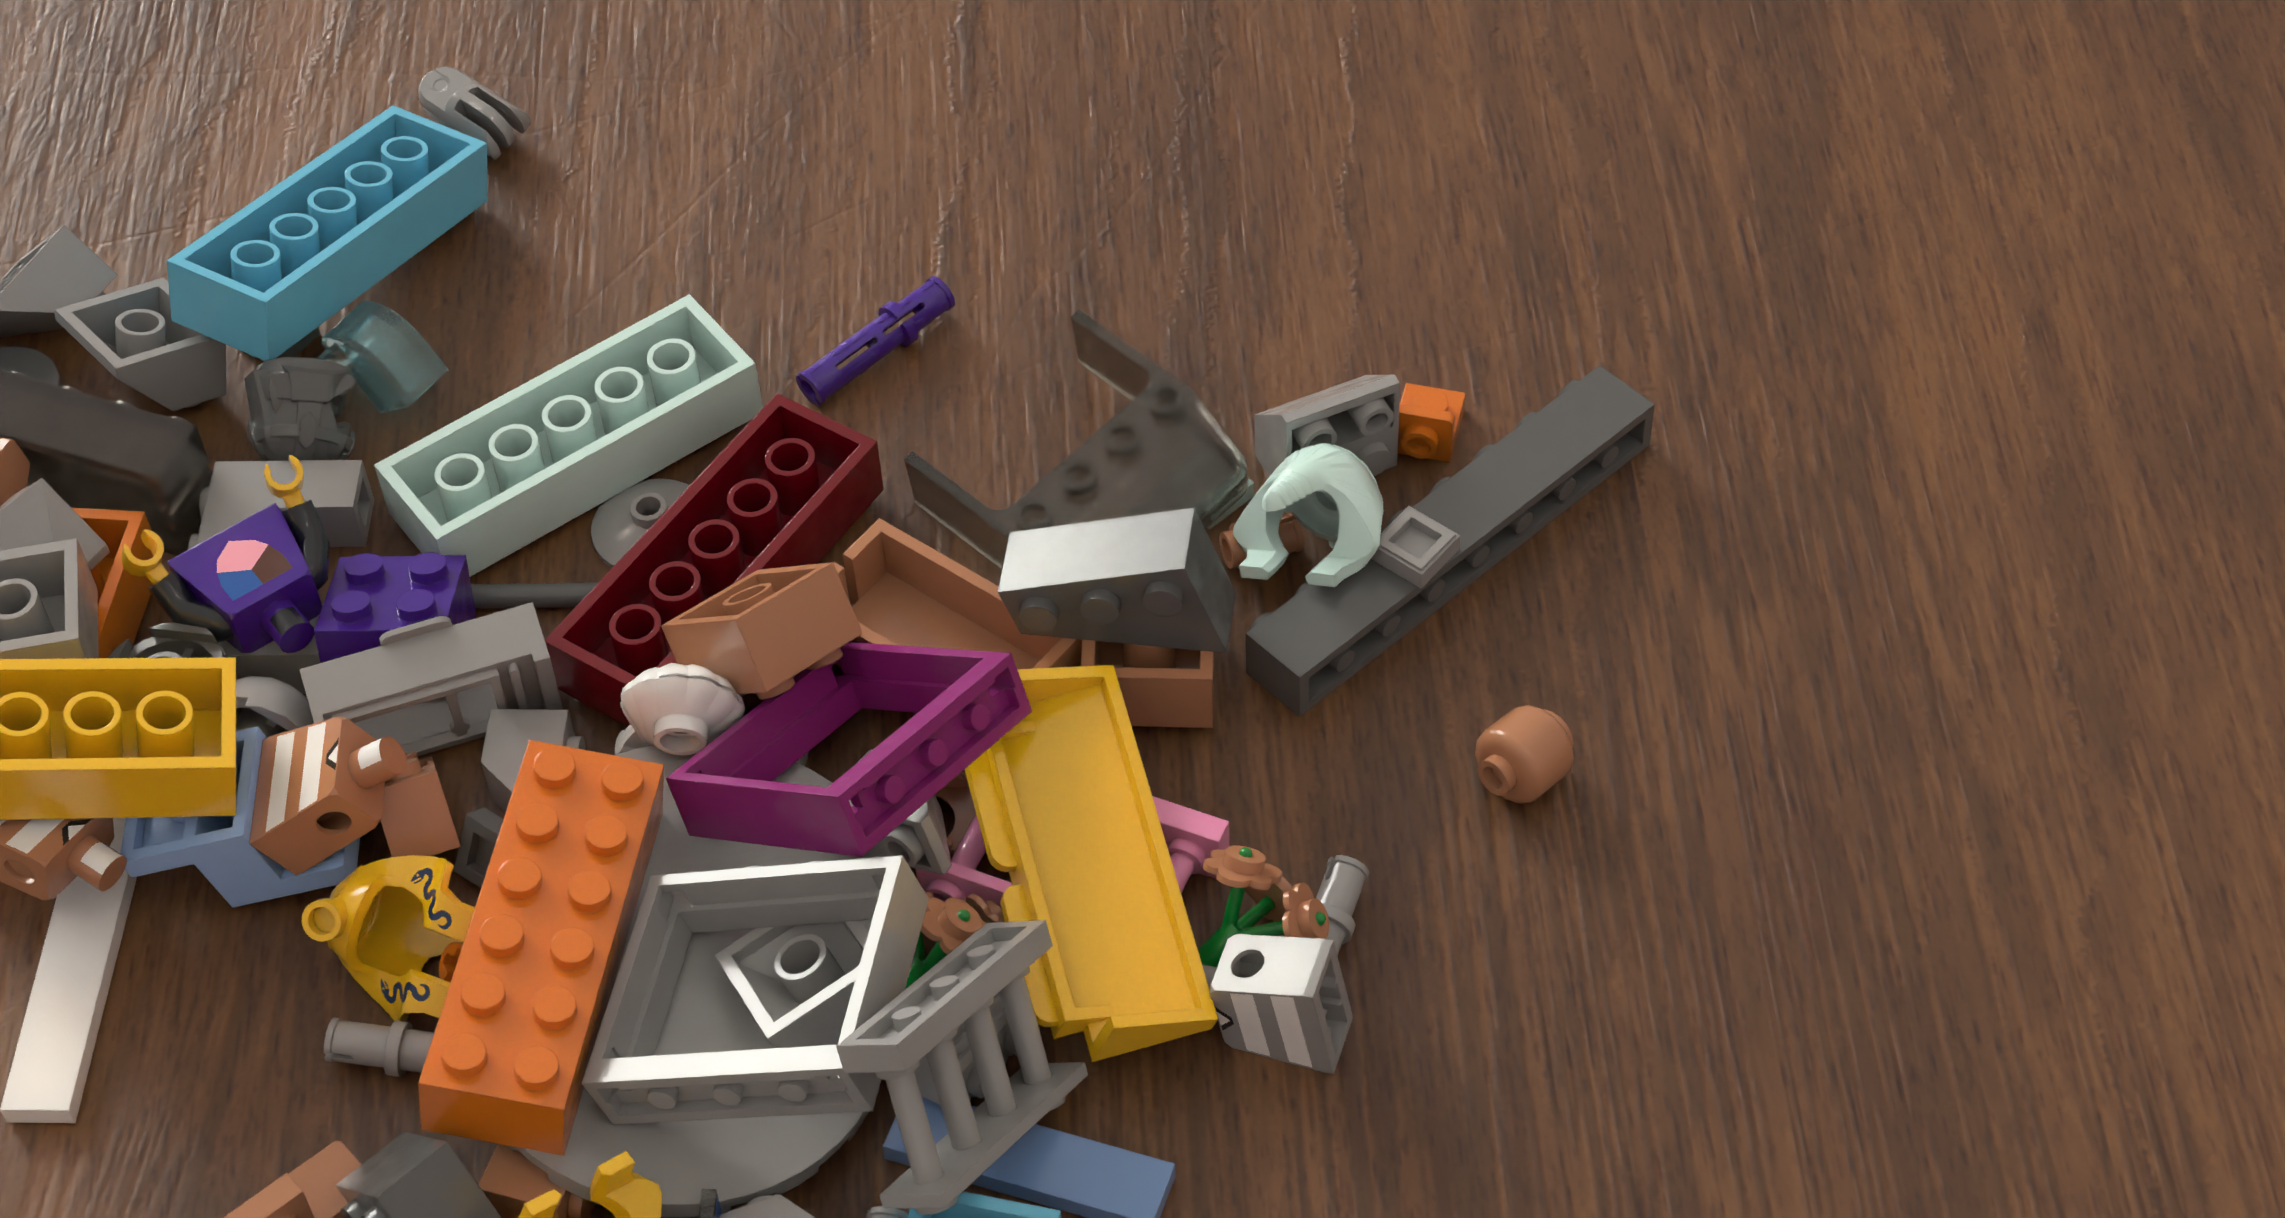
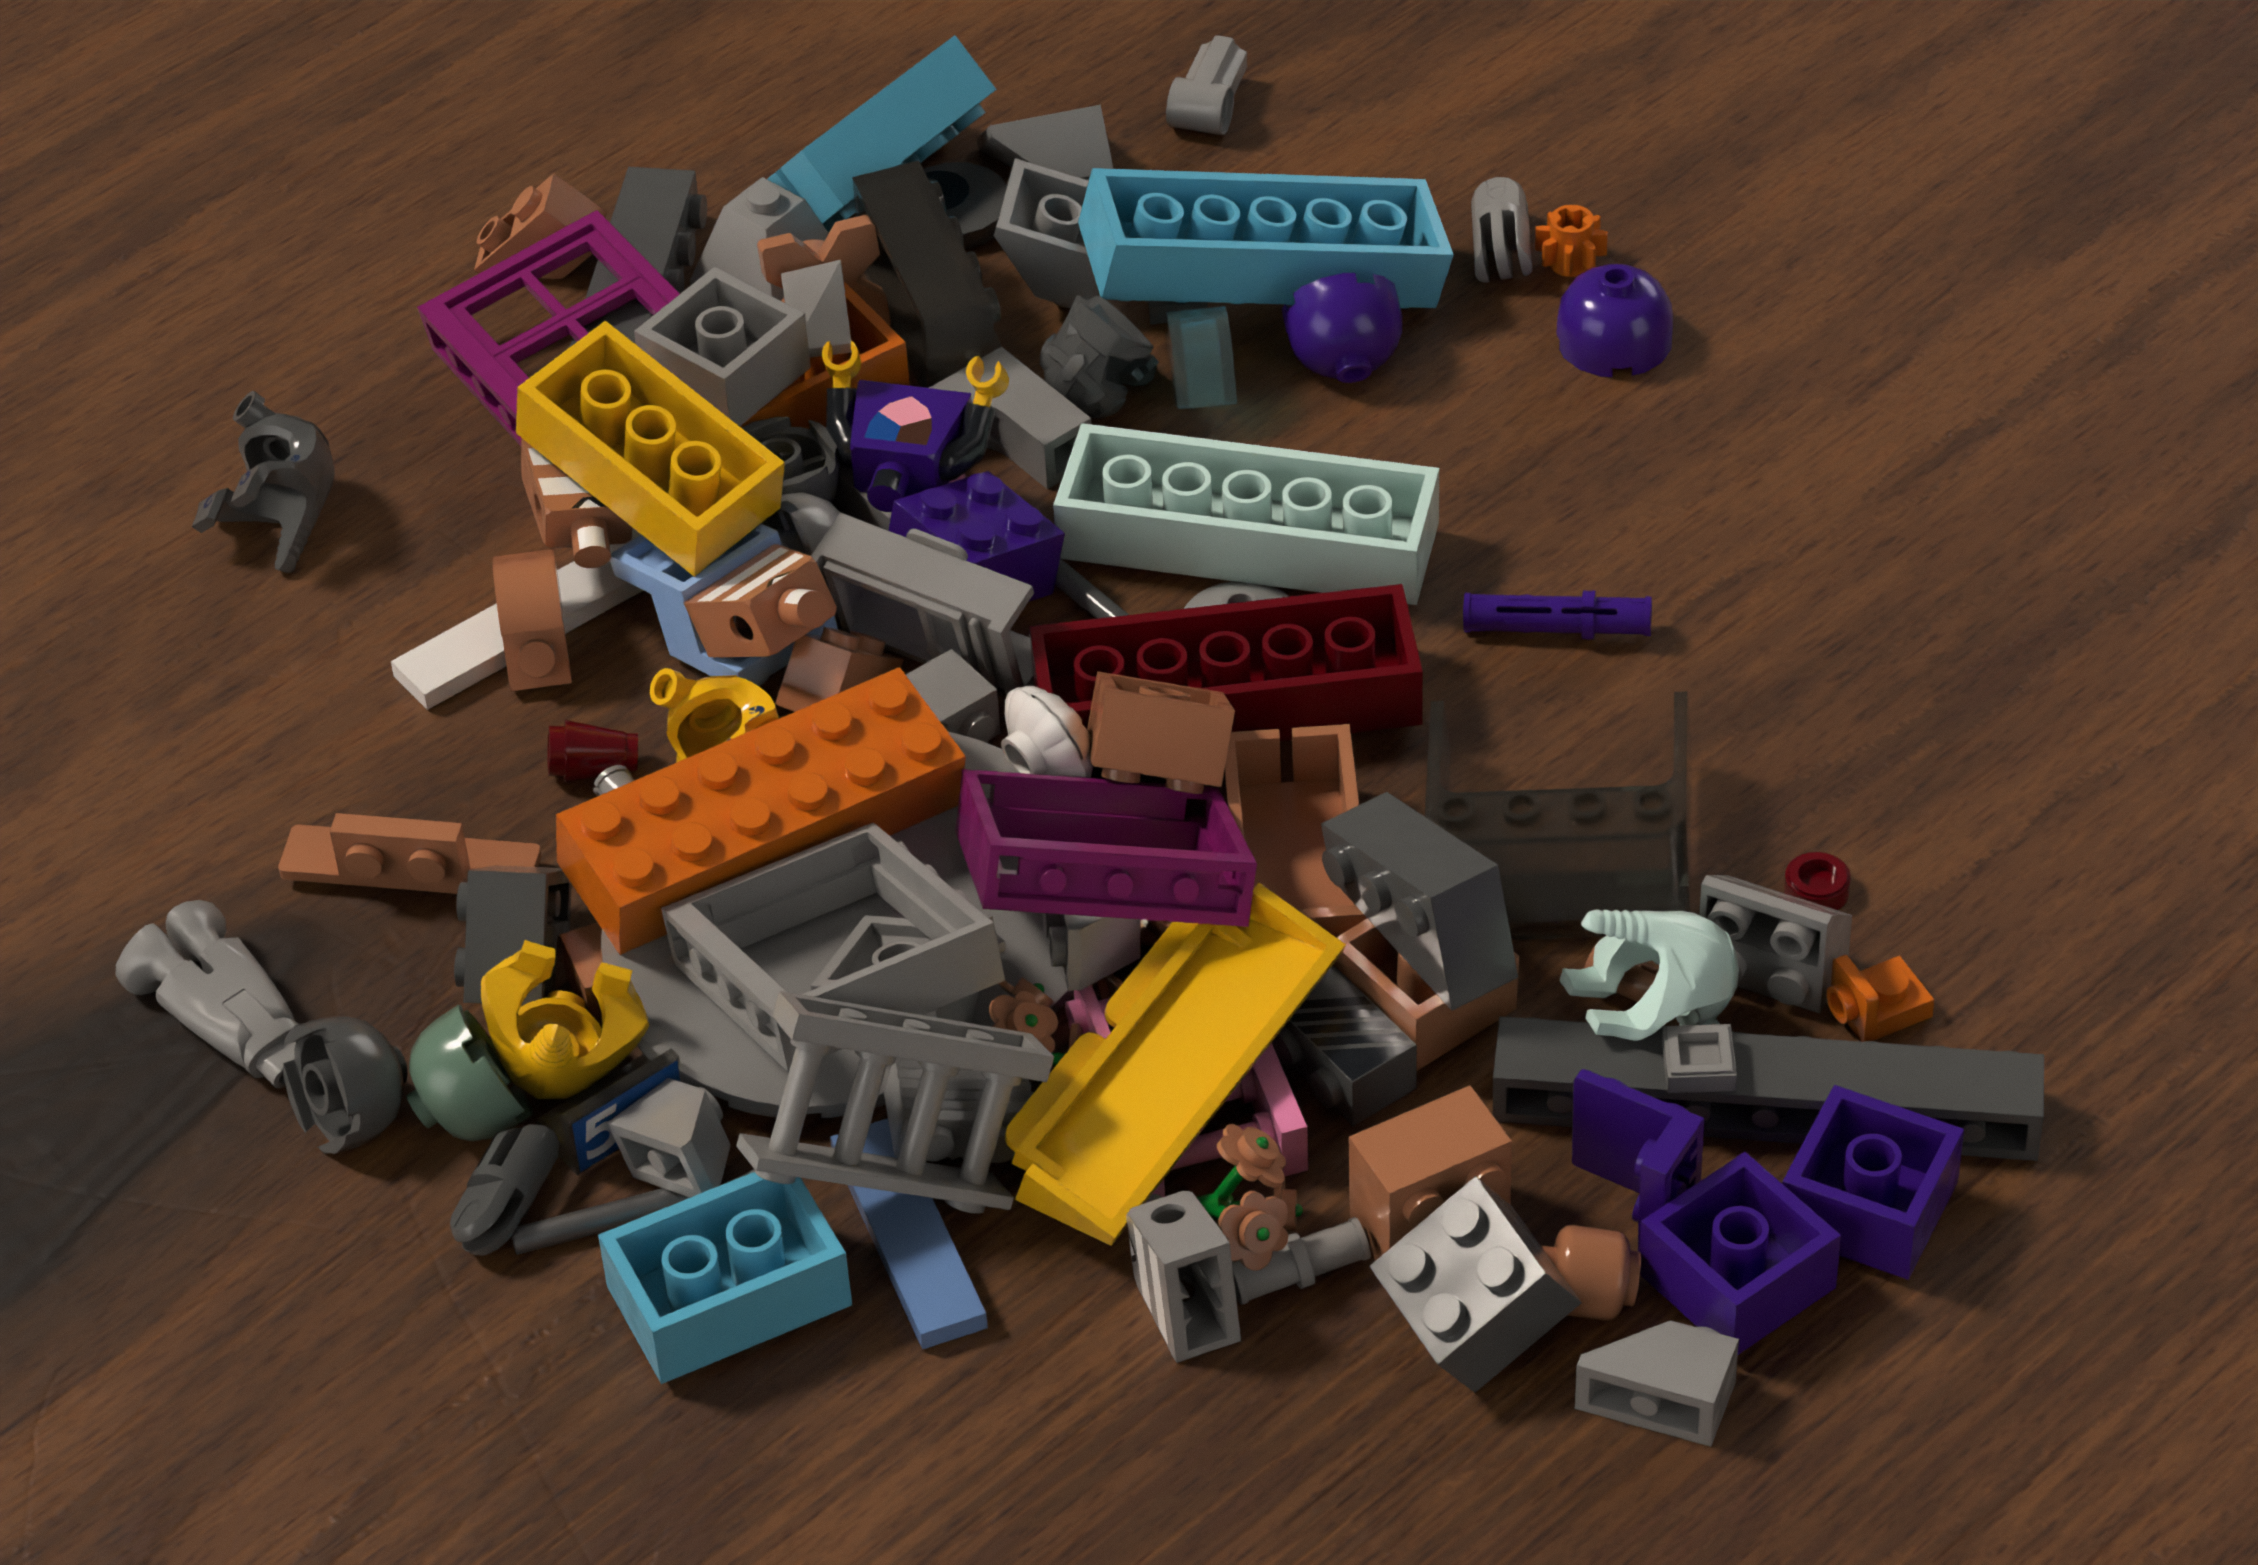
camera: 50 degrees right, 5 degrees down
(100, 961) = (531, 619): none -> nougat brick
(103, 170) = (1207, 93): none -> light grey piece
(276, 1036) = (586, 750): none -> dark red cone
(460, 256) = (1344, 325): none -> dark purple cylinder
(533, 81) = (1571, 240): none -> orange gear
(637, 115) = (1615, 321): none -> dark purple cylinder
(1178, 746) = (1348, 1050): none -> dark grey brick
(1283, 379) = (1818, 879): none -> dark red tile
(1366, 781) = (1420, 1161): none -> nougat brick
(1464, 634) = (1635, 1141): none -> dark purple bracket
(1486, 824) = (1475, 1284): none -> brick
(1604, 653) = (1739, 1252): none -> dark purple brick
(1610, 536) = (1877, 1177): none -> dark purple brick
(1668, 780) = (1662, 1380): none -> light grey slope

